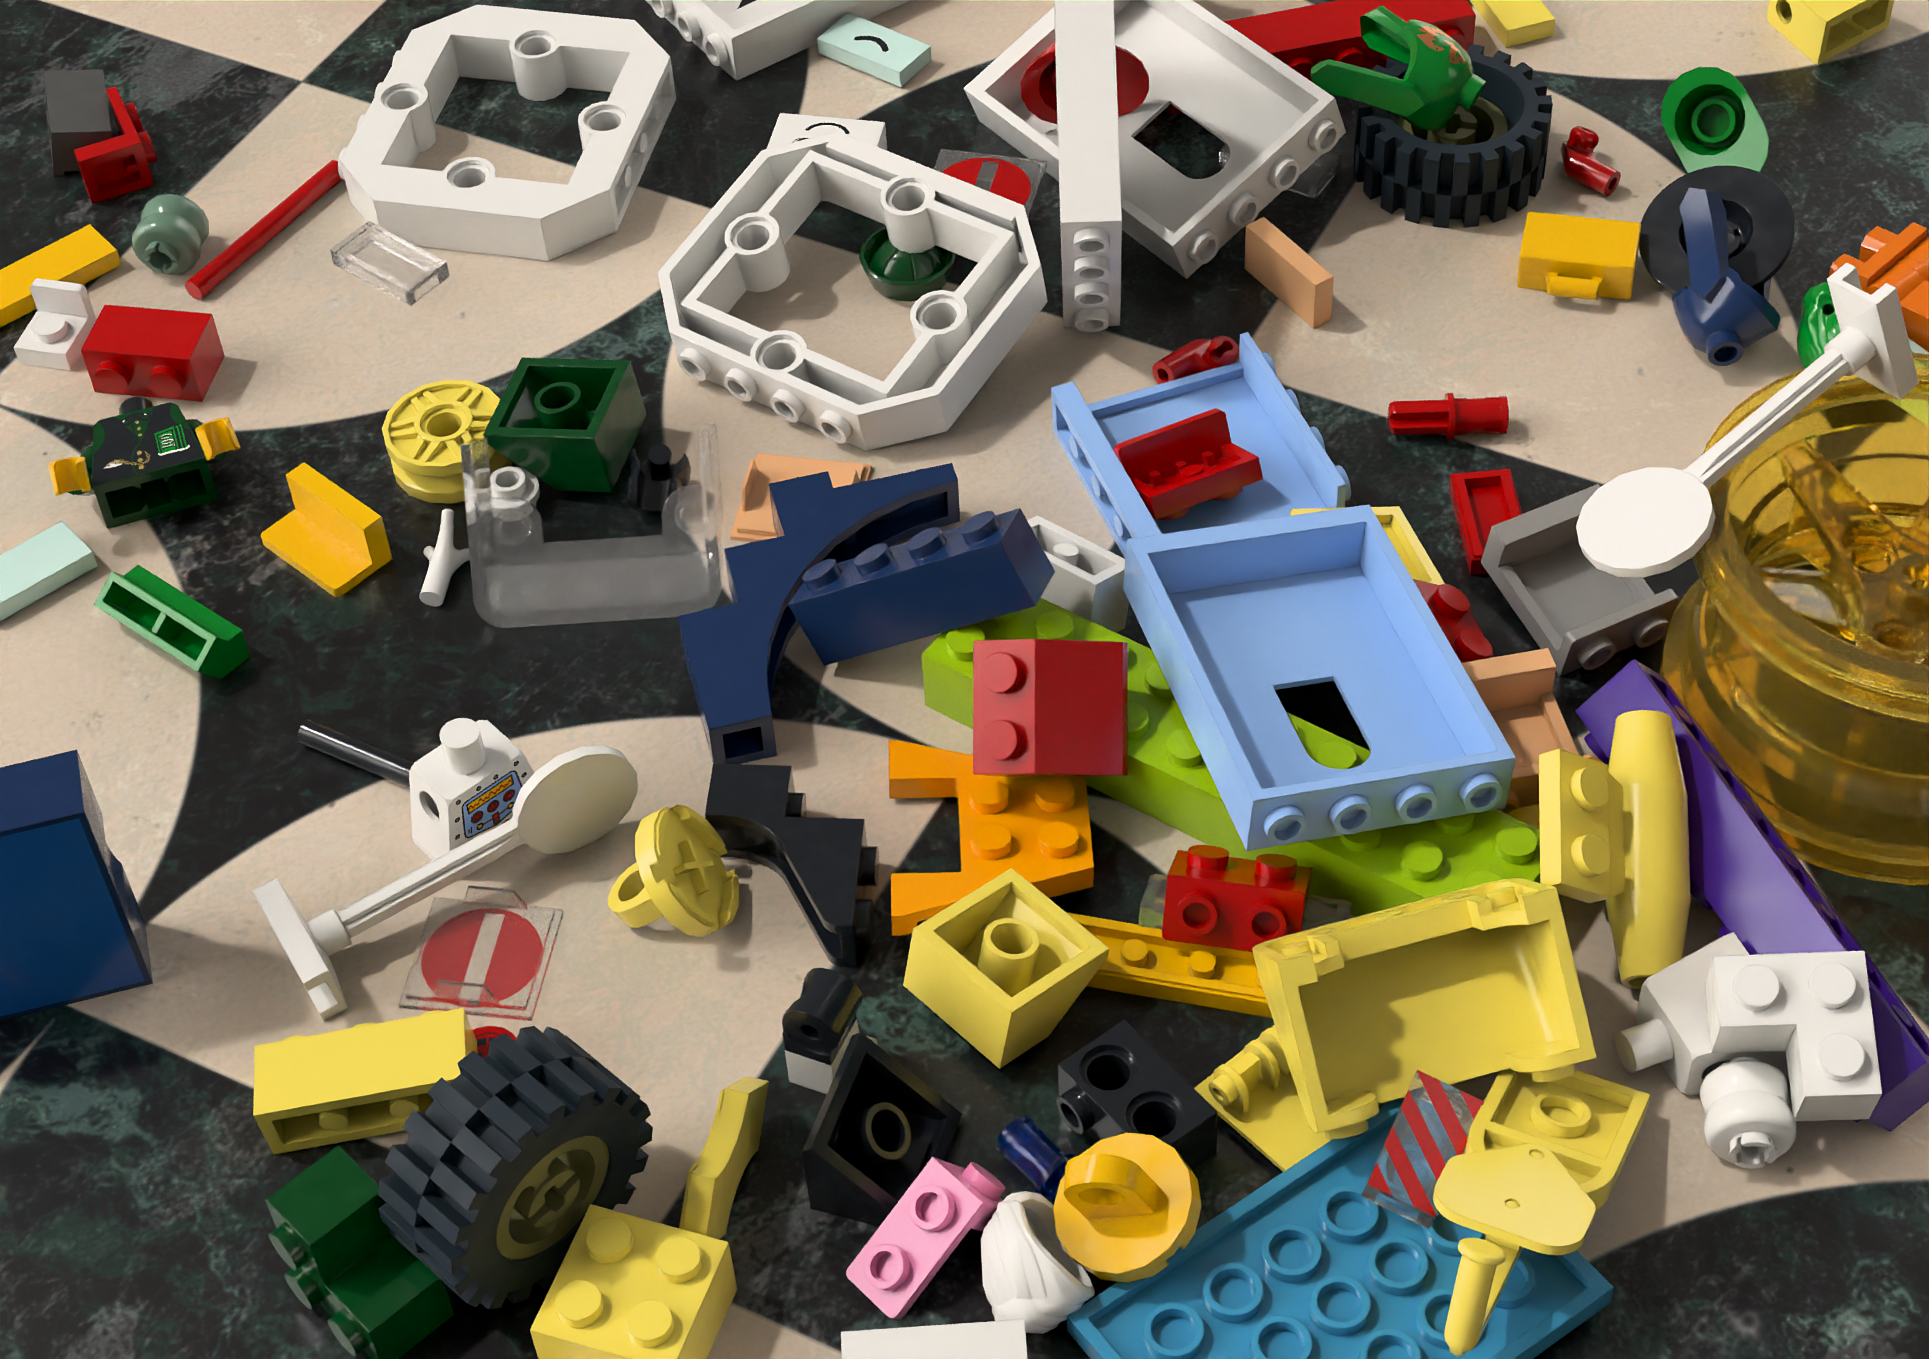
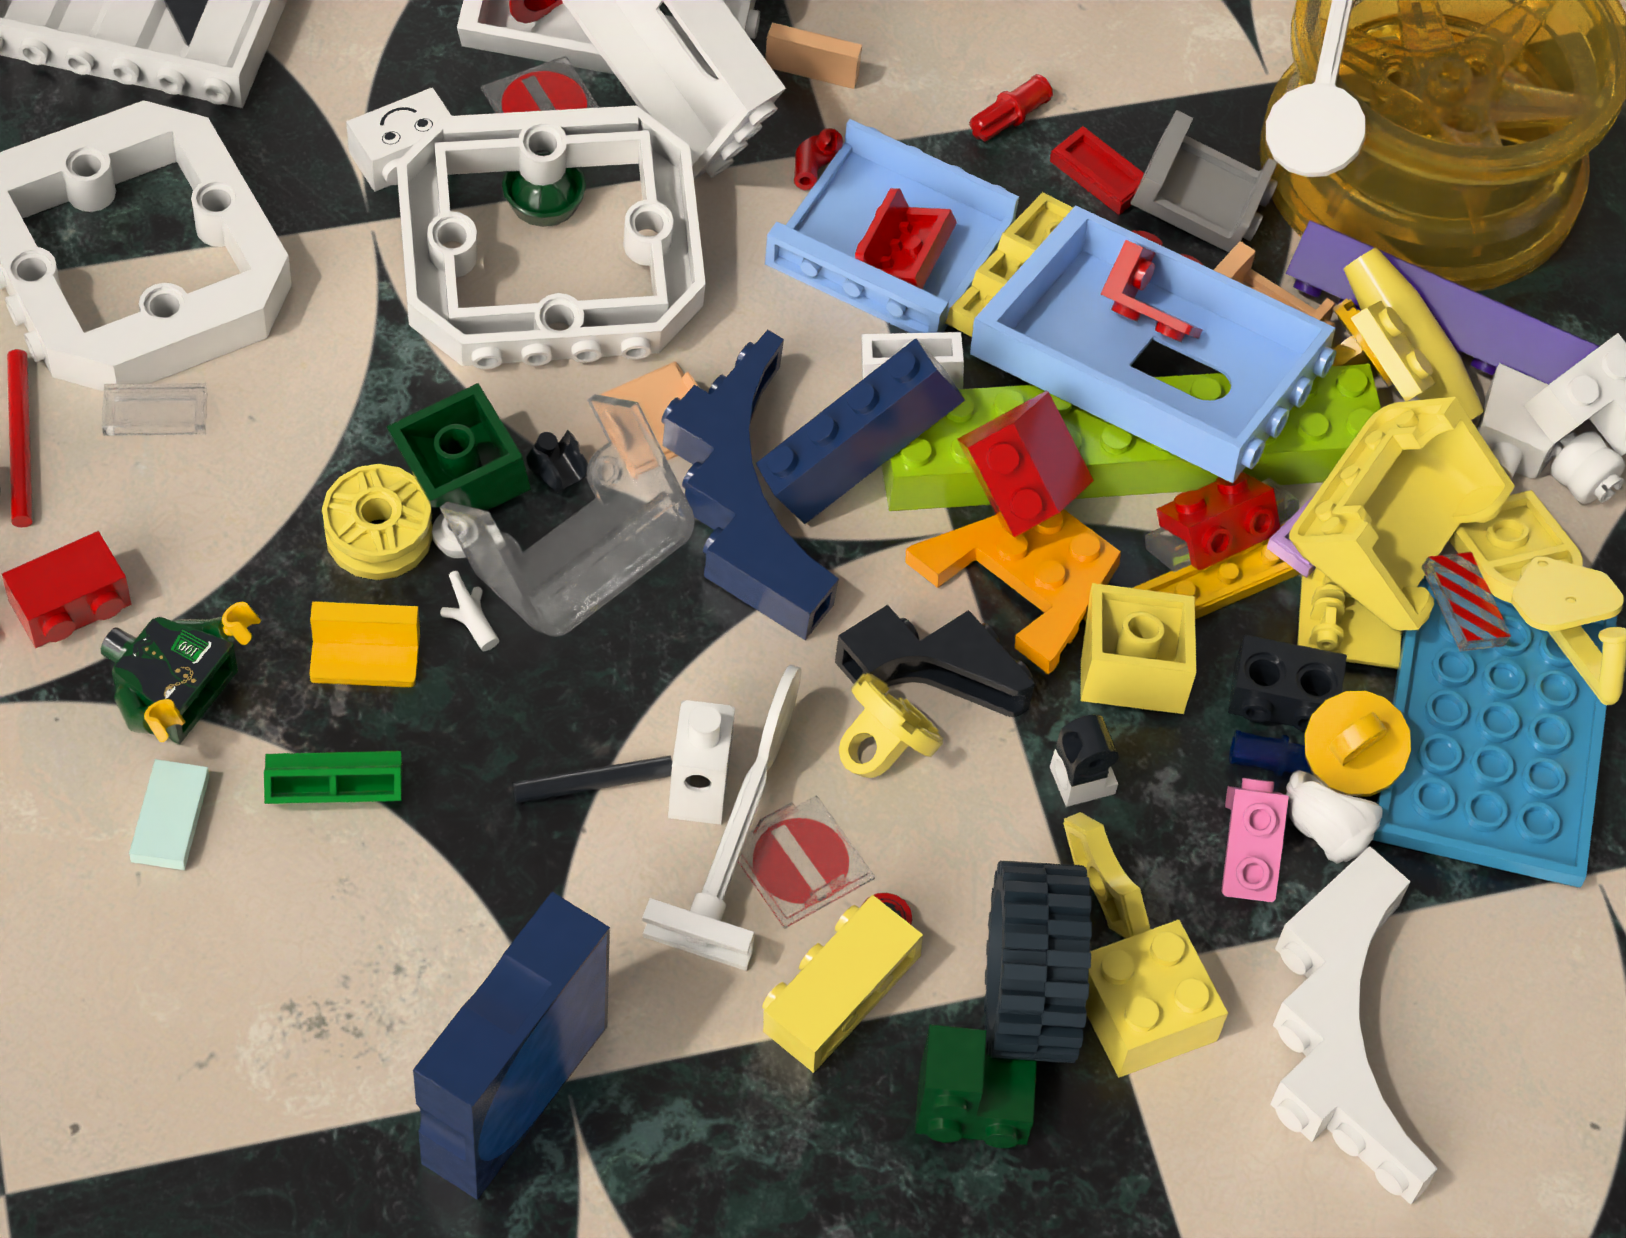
camera: 50 degrees left, 10 degrees up
(873, 1135) = (1168, 806): black slope -> none
(874, 49) = (327, 26): light aqua tile -> none
(1338, 604) = (1133, 273): none -> bracket

